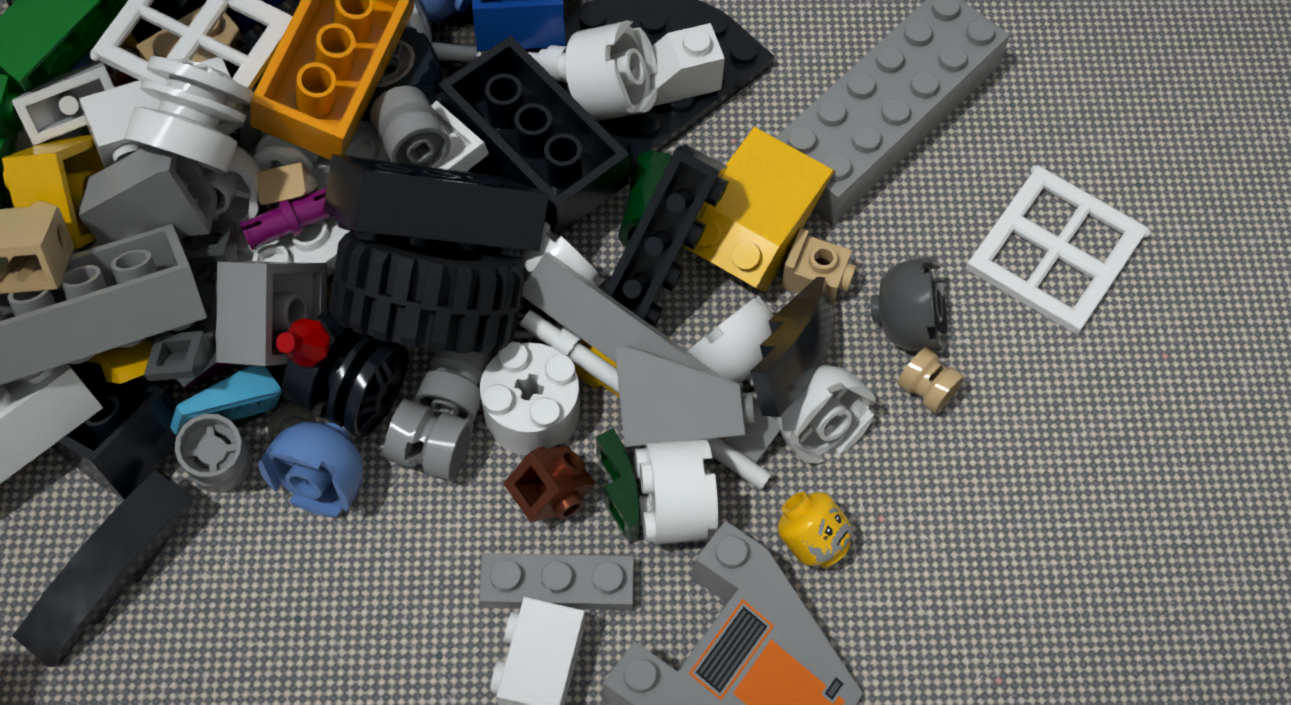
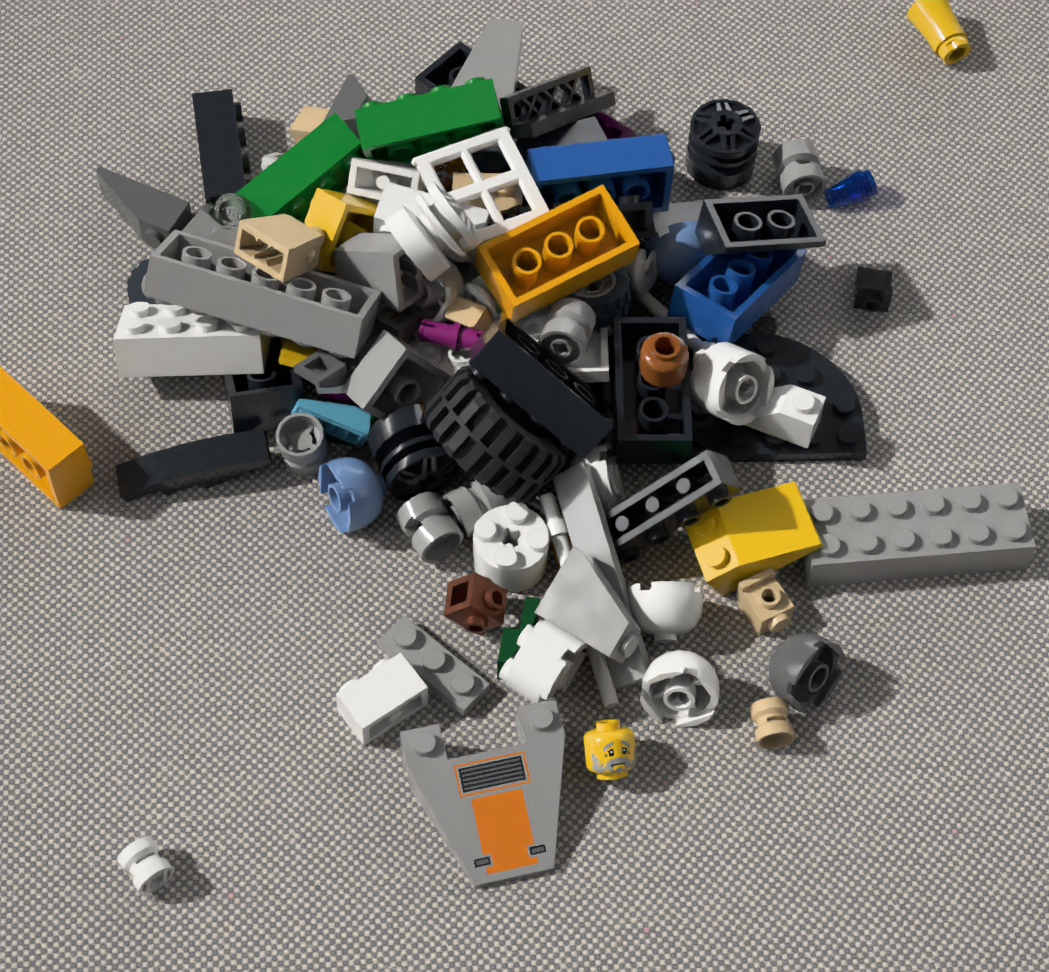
camera: 40 degrees right, 5 degrees down
(304, 342) = (395, 411): red rock -> none
(538, 89) = (663, 359): none -> dark orange head
(794, 348) = (690, 630): black slope -> none
(1057, 248) = (933, 672): white window -> none

